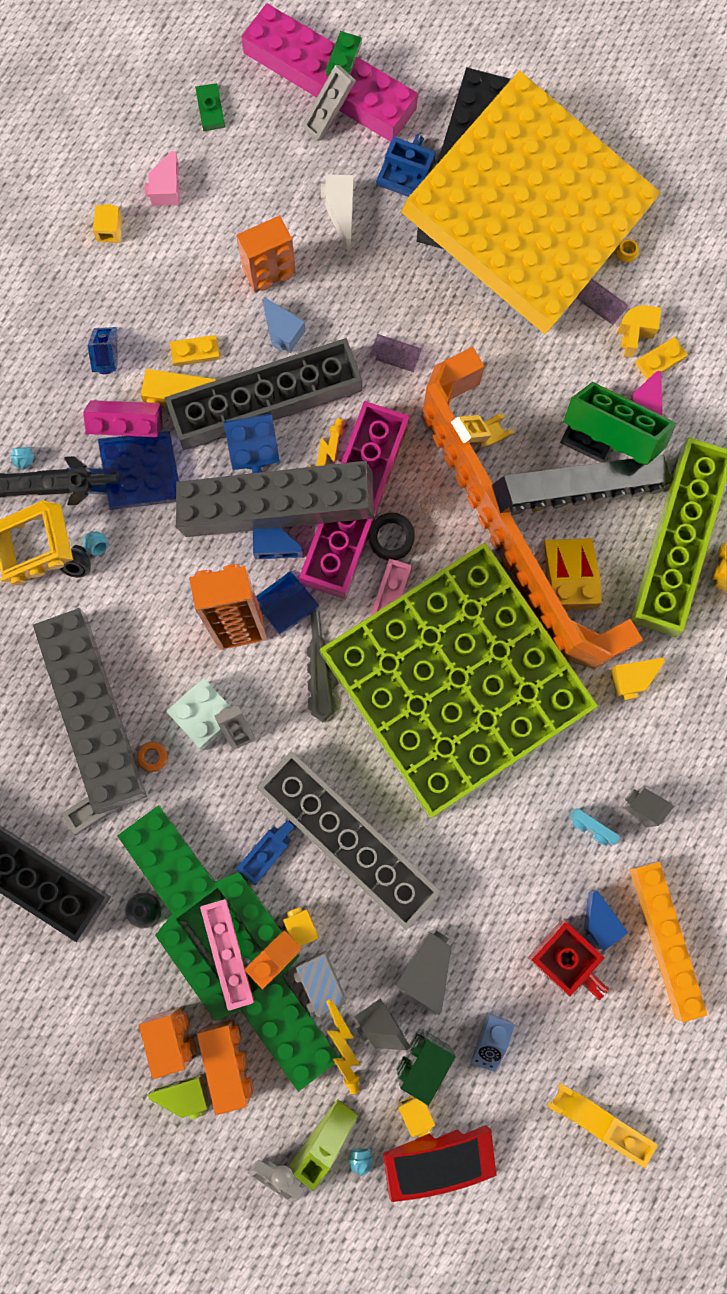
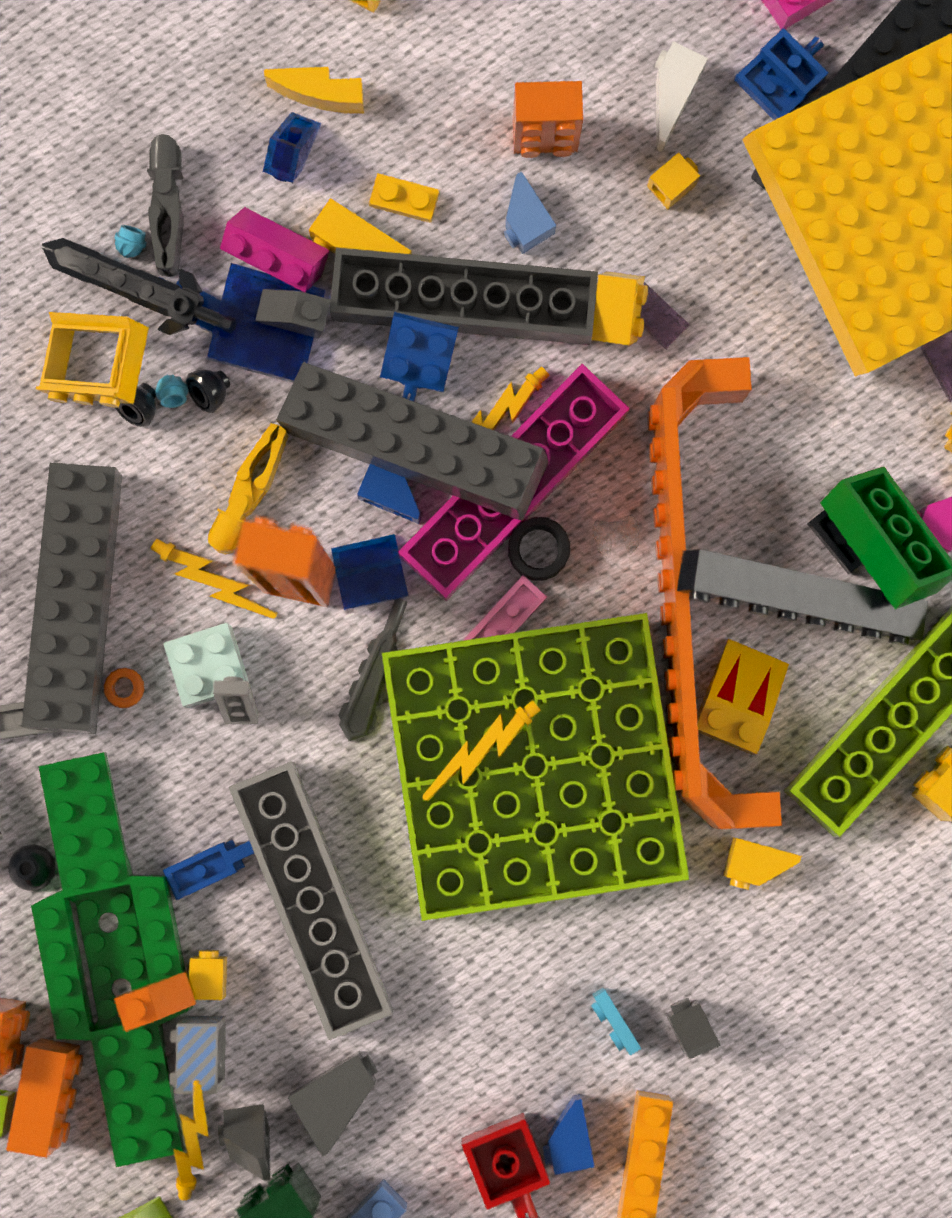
camera: 25 degrees right, 5 degrees up
(26, 402) = (165, 169): none -> dark grey arm
(104, 305) = (316, 89): none -> yellow slope
(119, 530) = (207, 389): none -> black brick
(155, 451) = (293, 311): none -> dark grey slope
(165, 657) = (193, 572): none -> yellow piece
(176, 612) = (248, 493): none -> yellow arm
(227, 954) = (104, 969): bright pink plate -> none
(367, 262) = (674, 180): none -> yellow brick
(371, 356) = (619, 308): none -> yellow brick
(414, 693) = (495, 733): none -> yellow piece
(486, 433) = (710, 471): yellow piece -> none

